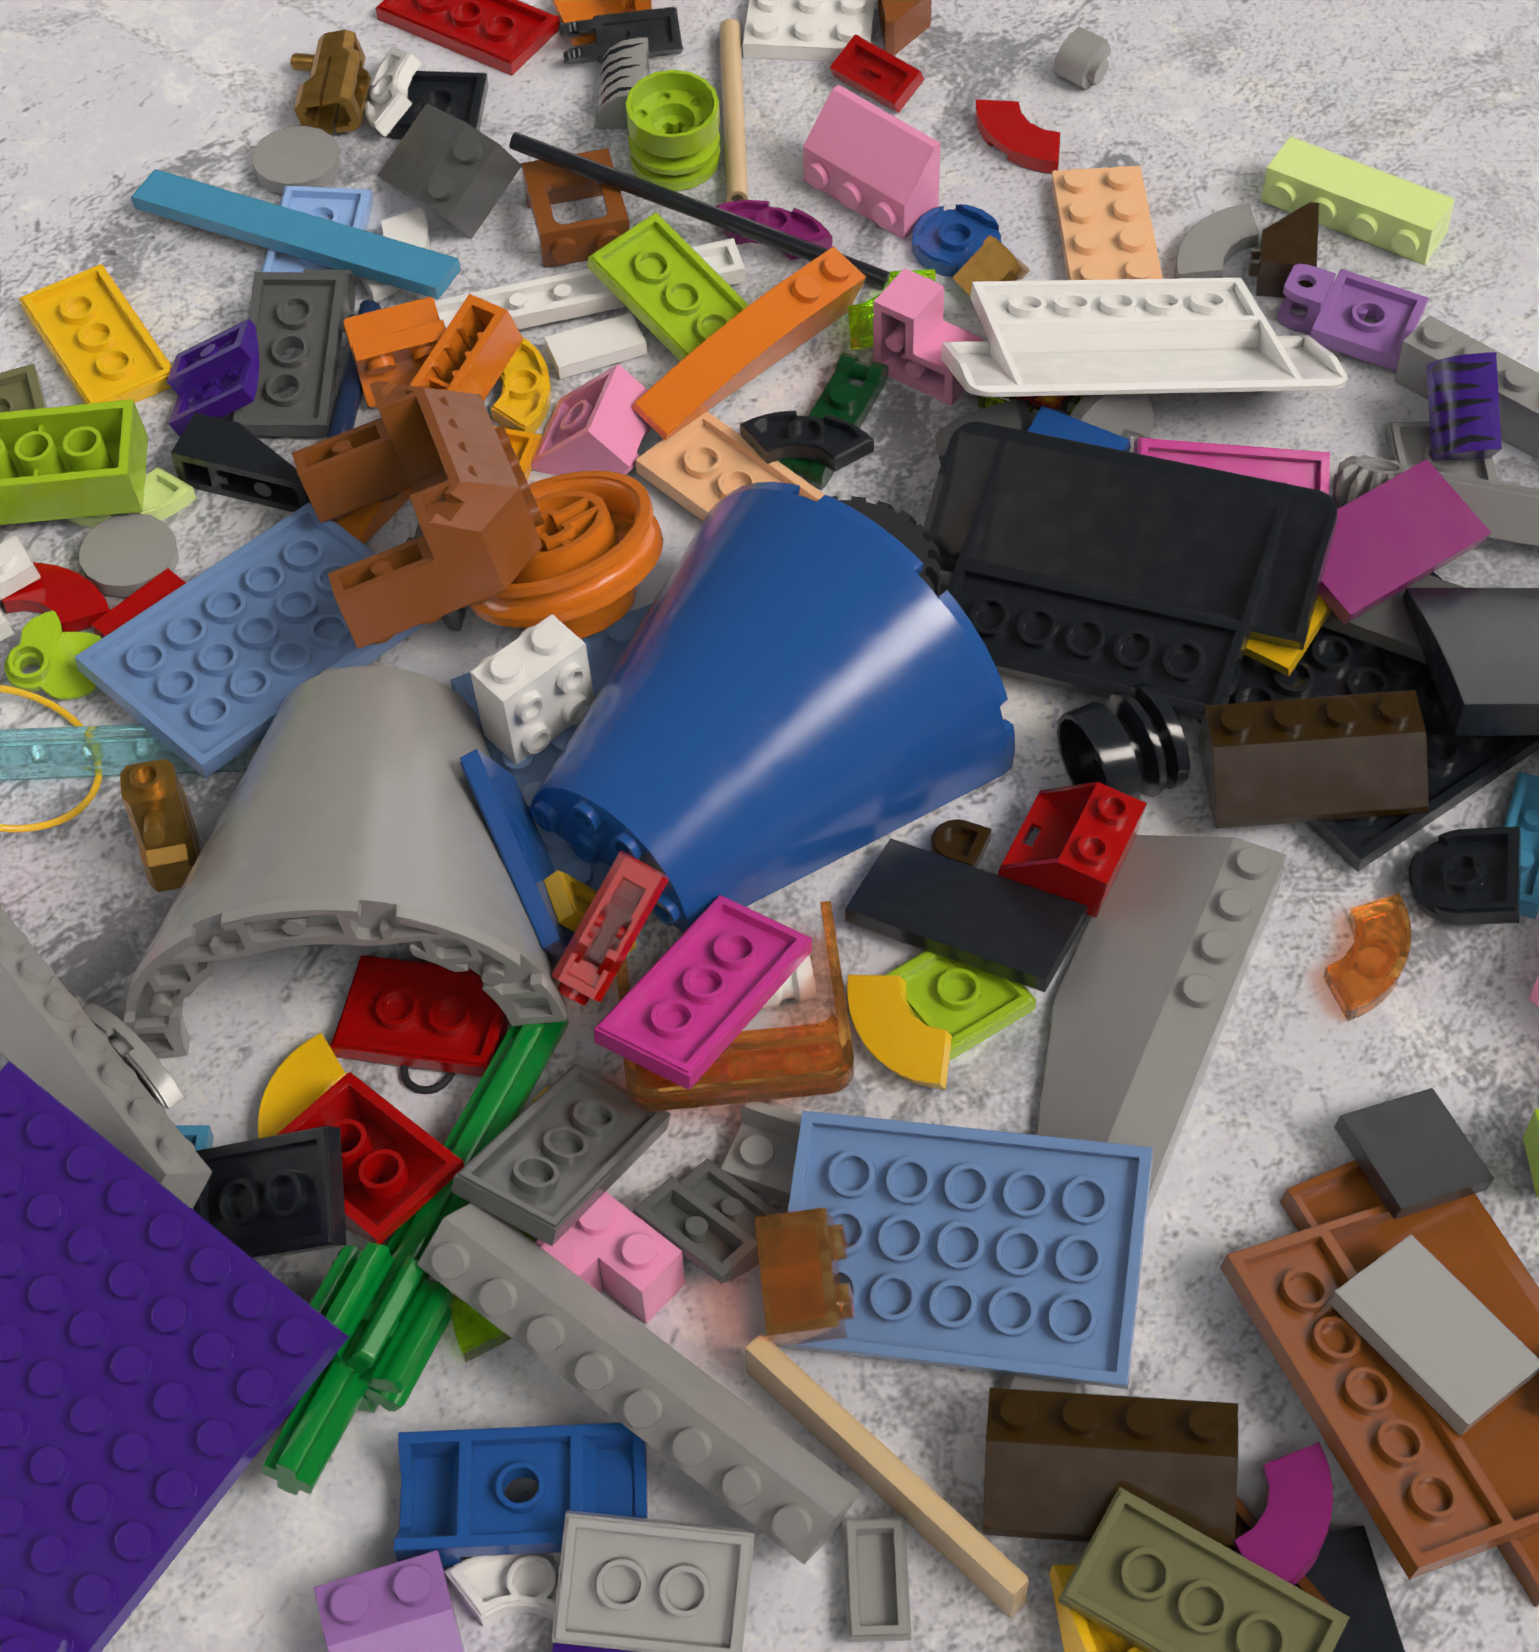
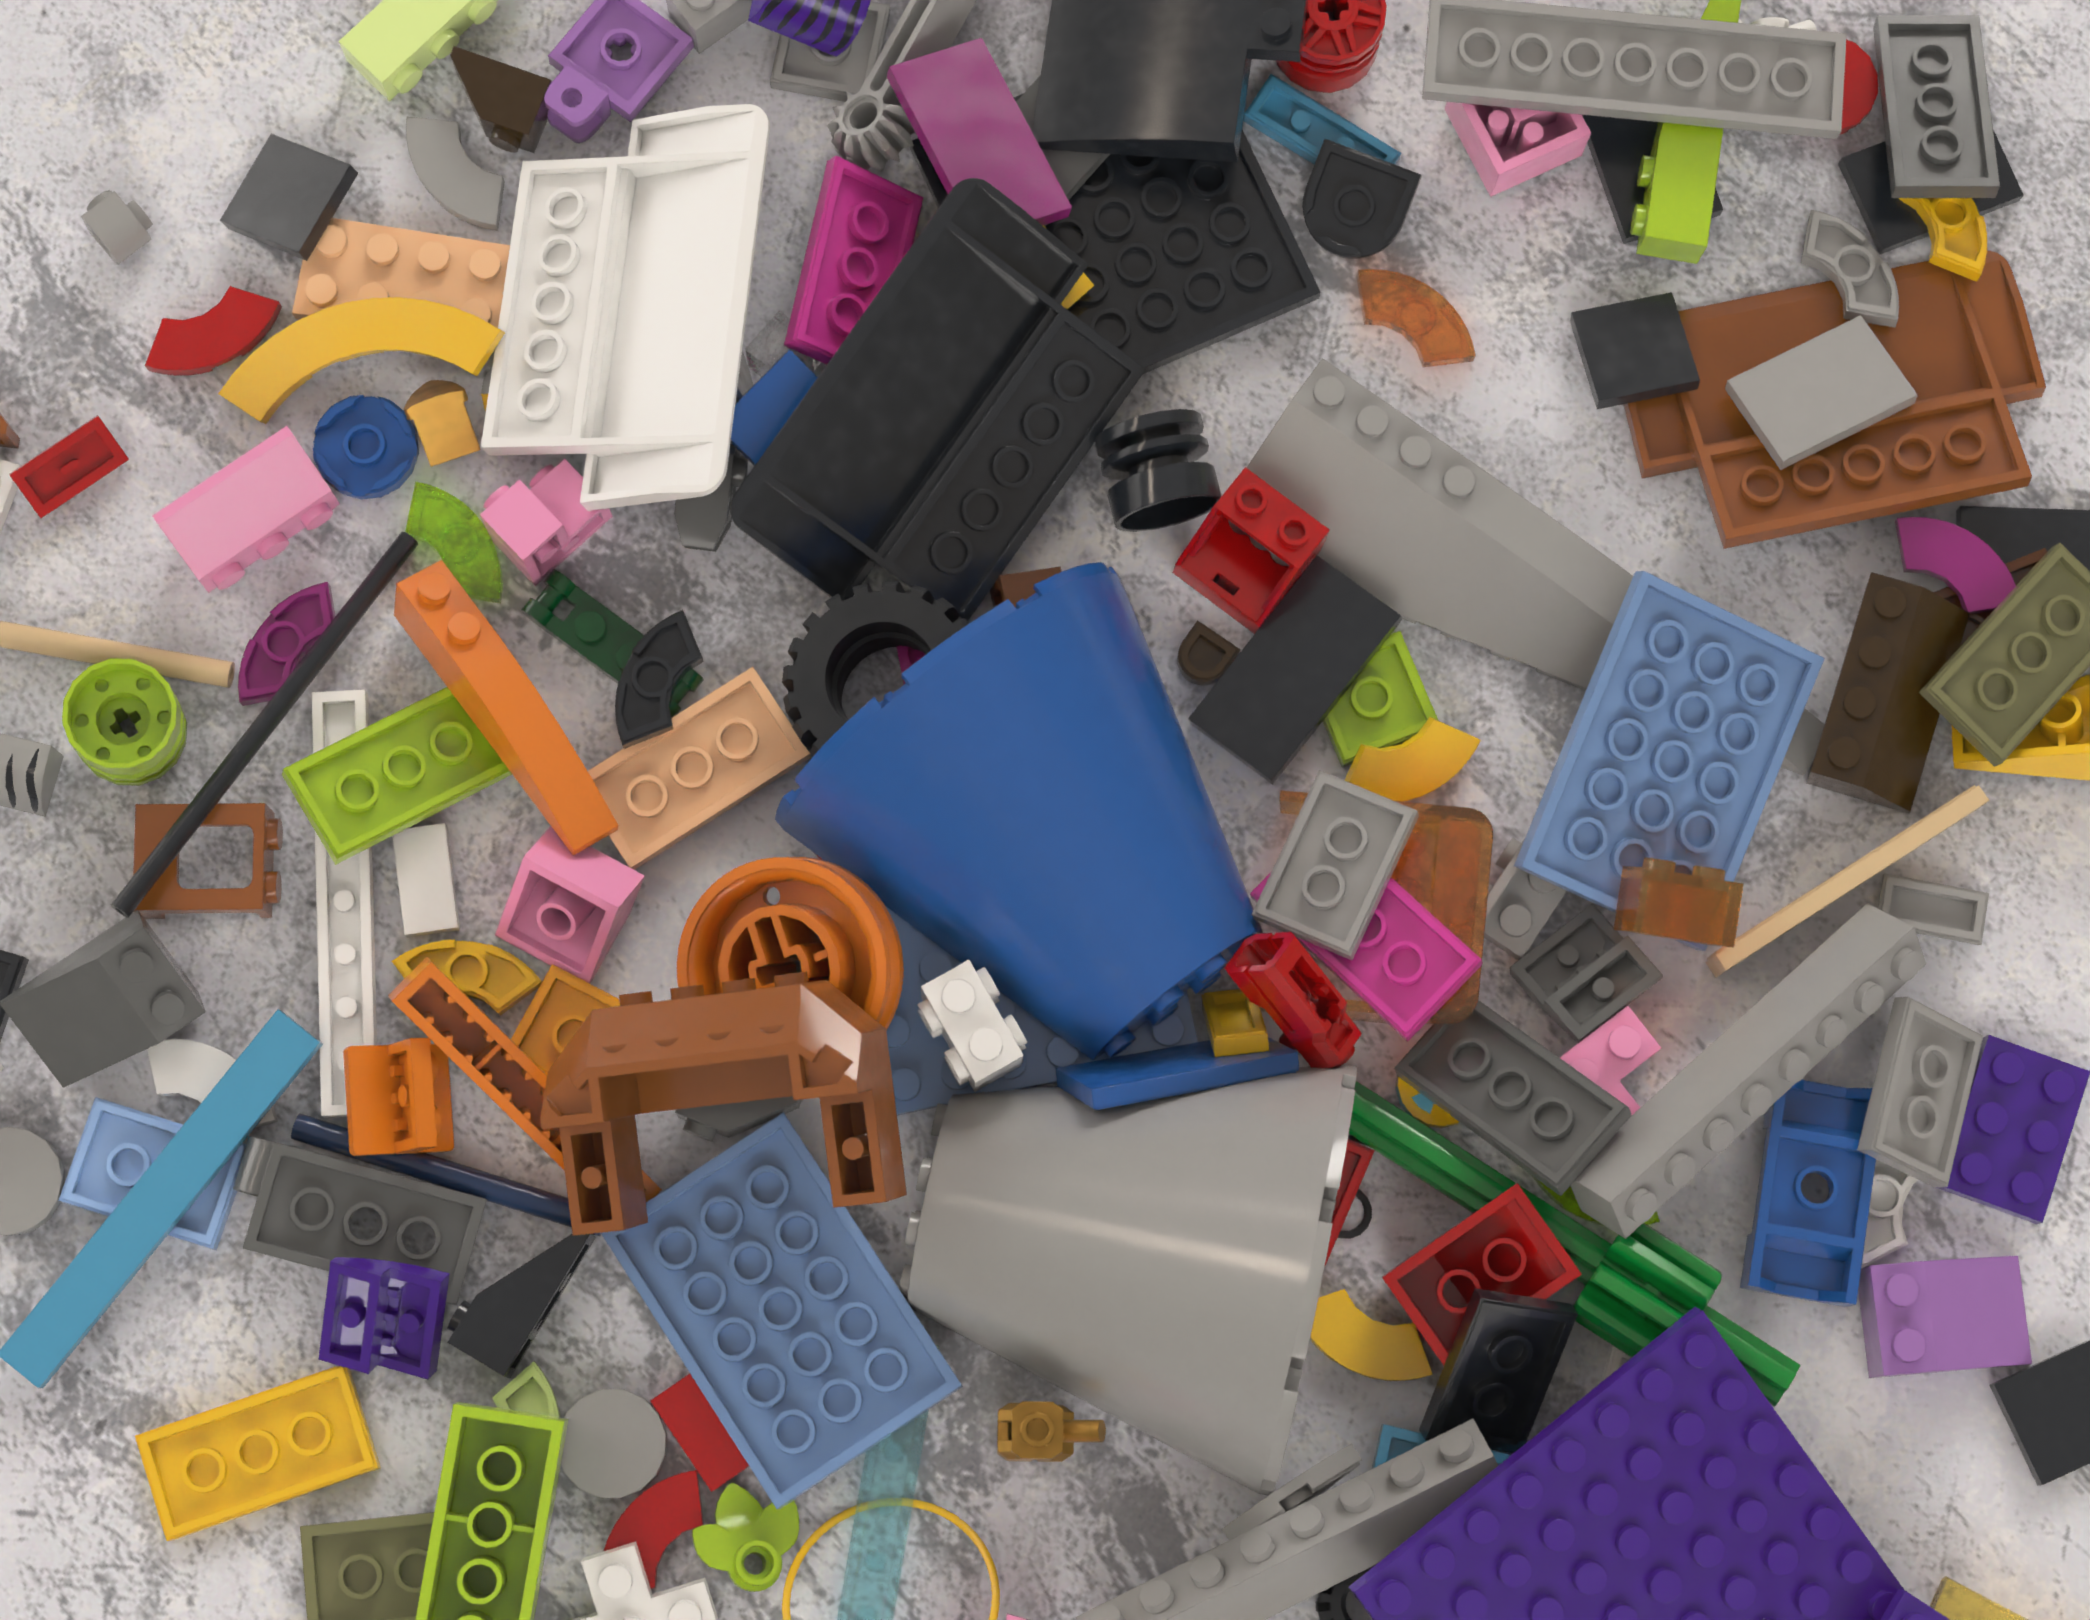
camera: 85 degrees left, 25 degrees up
(761, 945) = (1335, 865): none -> light grey tile
(1043, 195) = (352, 332): none -> yellow tile
(1148, 147) = (289, 196): none -> tile
(1314, 759) = (1217, 298): dark brown slope -> none

